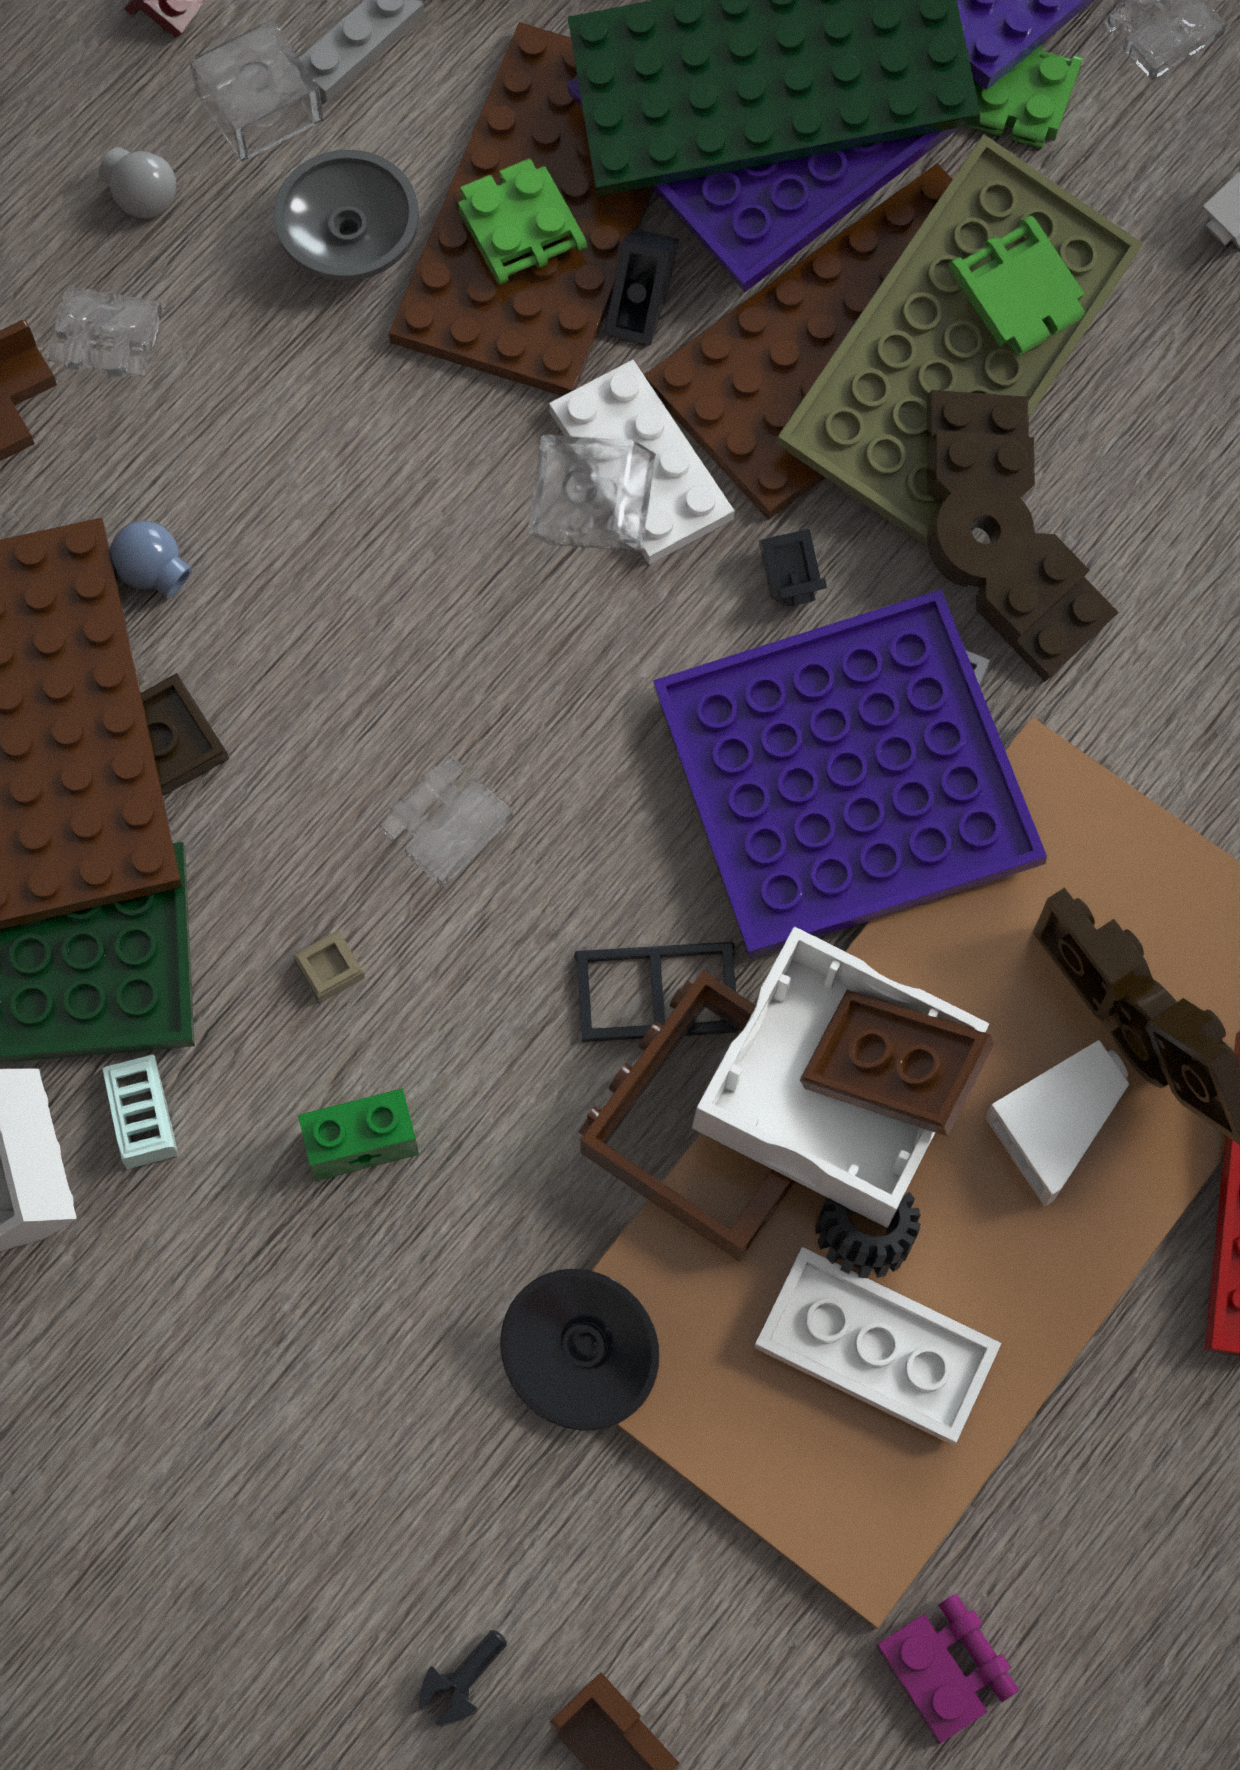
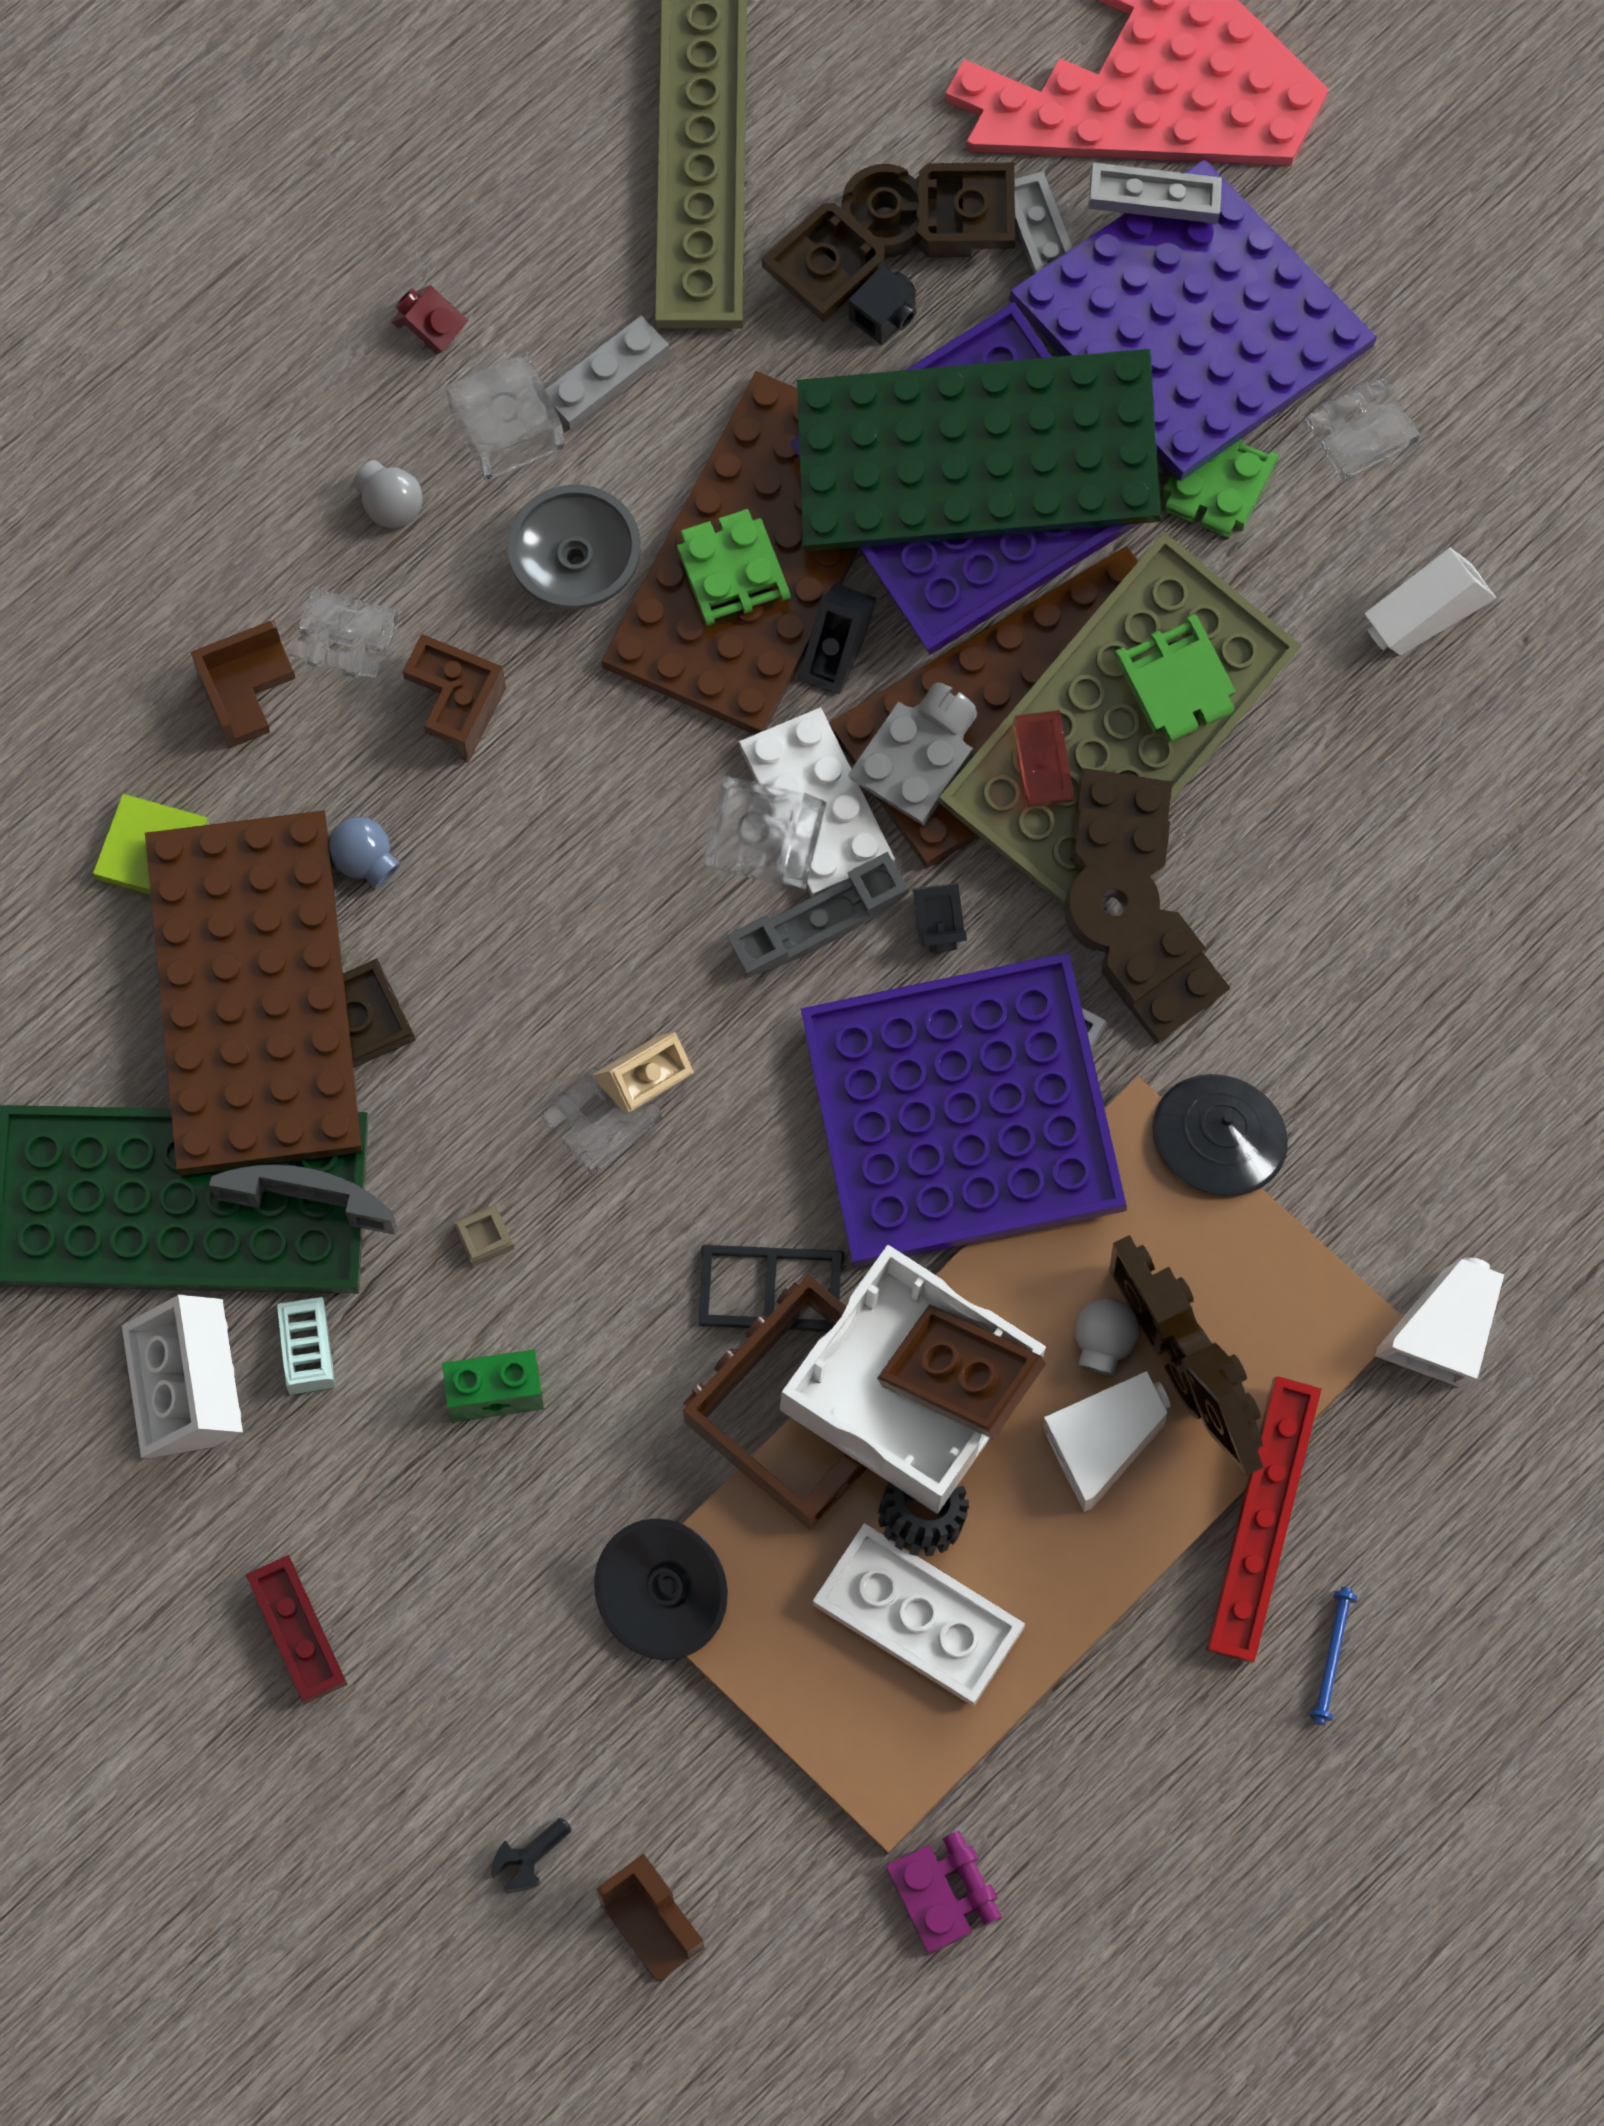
camera: 10 degrees right, 0 degrees up
(56, 935) = (248, 1184): none -> dark grey slope
(161, 1442) = (296, 1629): none -> dark red plate
(246, 374) = (467, 691): none -> reddish brown panel
(489, 766) = (645, 1072): none -> tan slope
(663, 582) = (820, 919): none -> dark grey slope
(747, 393) = (918, 752): none -> light grey plate
(887, 383) = (1043, 758): none -> clear red plate
(1043, 1003) = (1105, 1334): none -> light grey piece
(1131, 772) = (1220, 1135): none -> black hat

